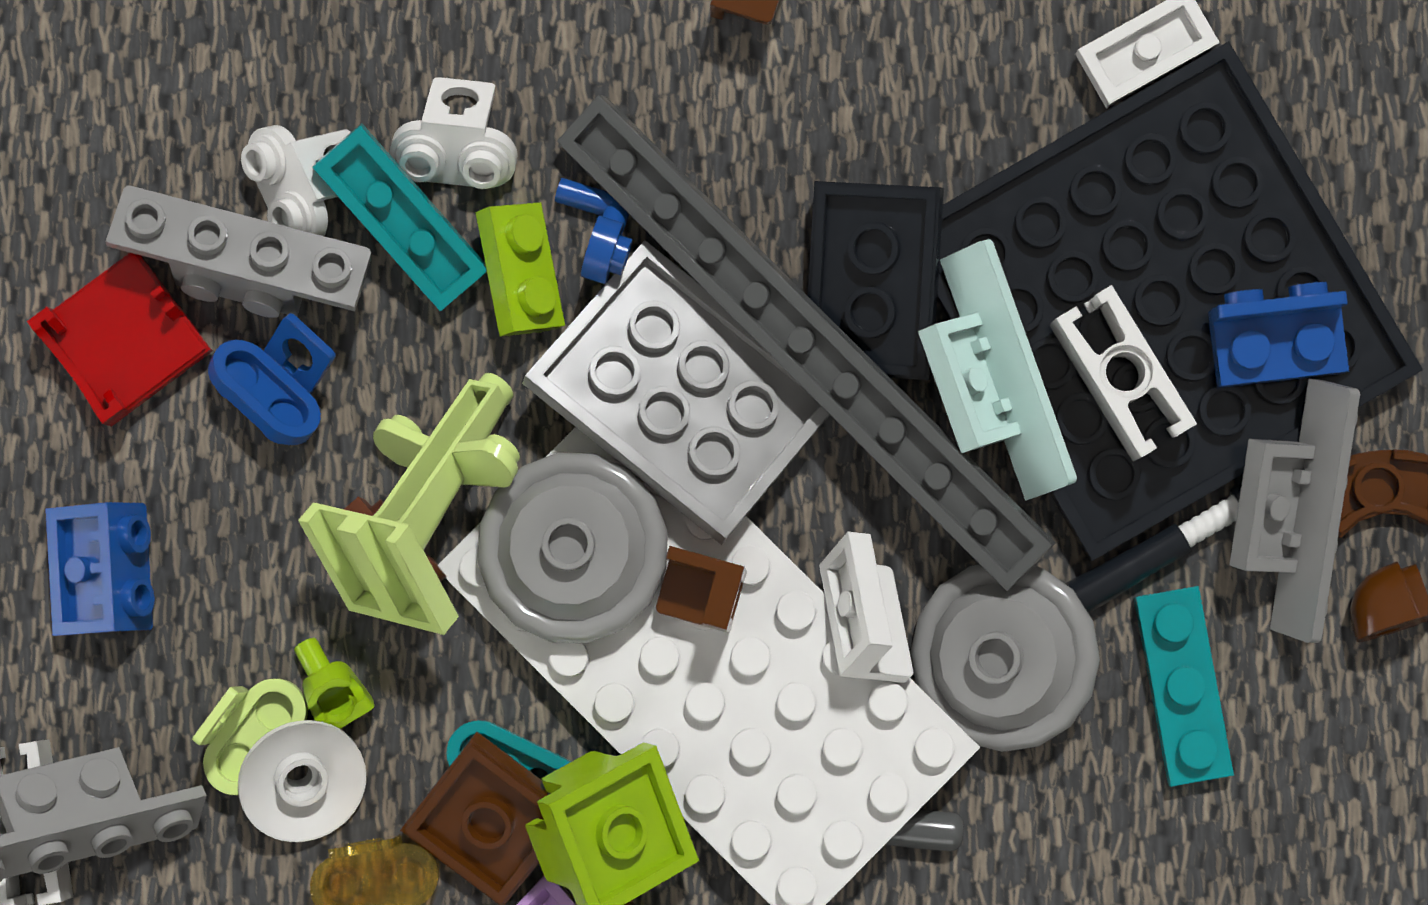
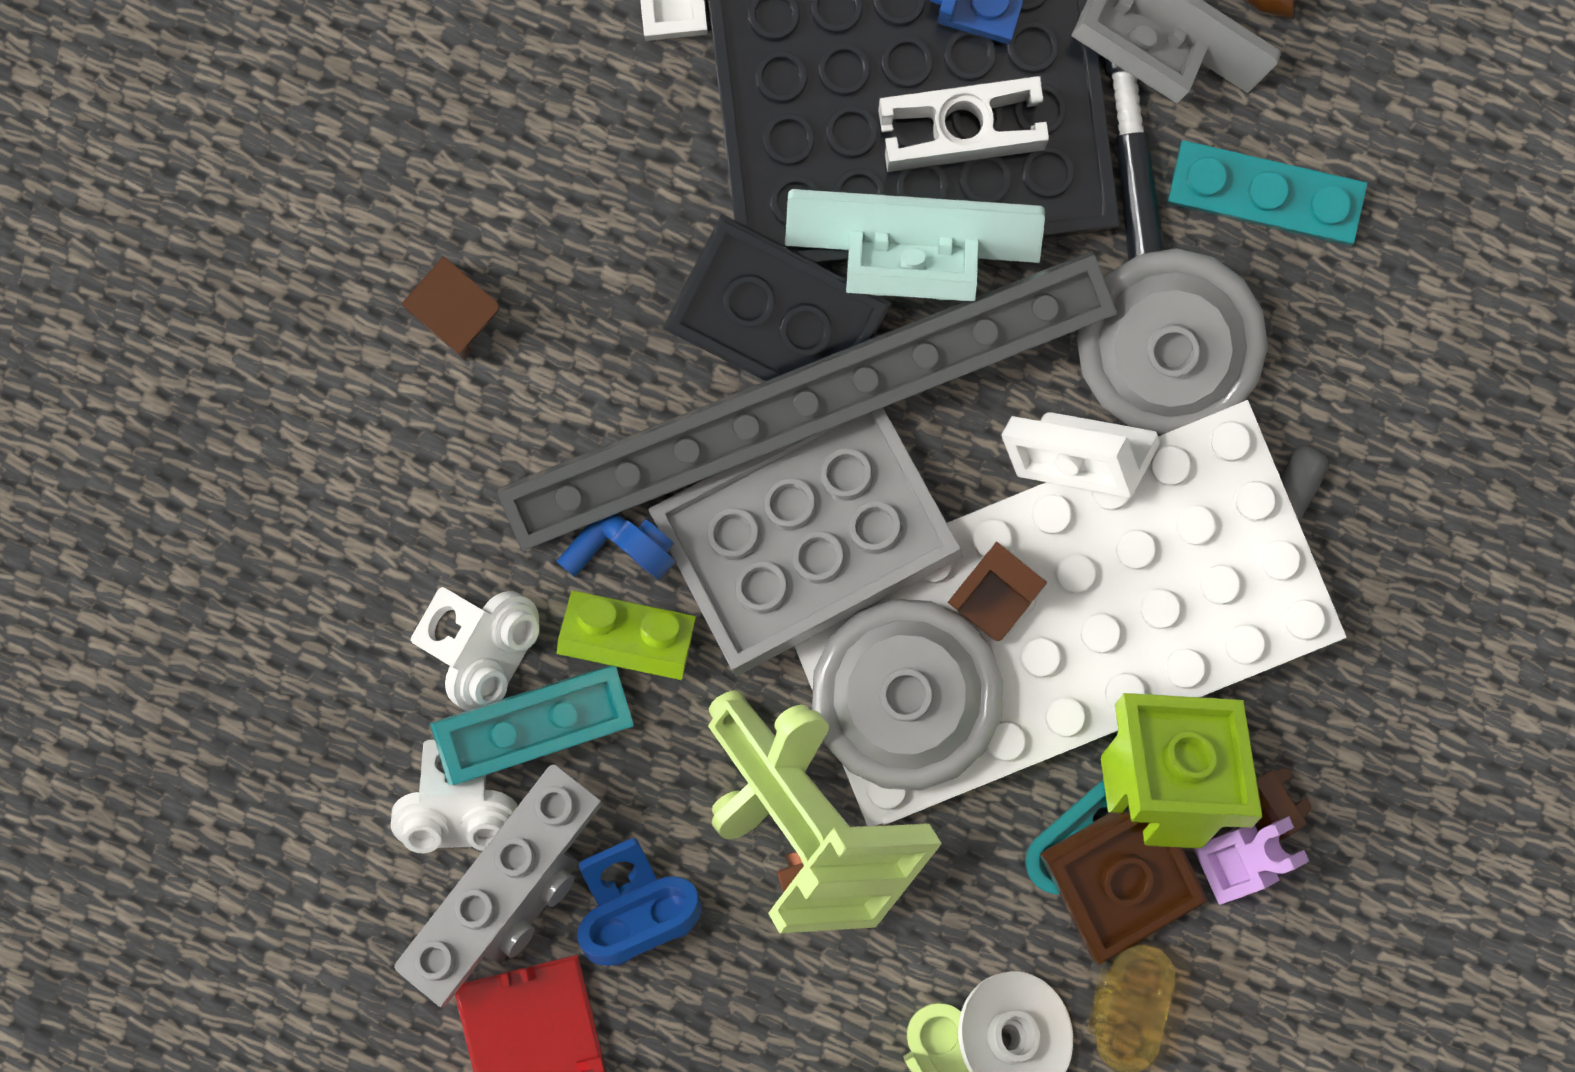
camera: 70 degrees left, 0 degrees up
(331, 688) = (940, 974): lime piece -> none

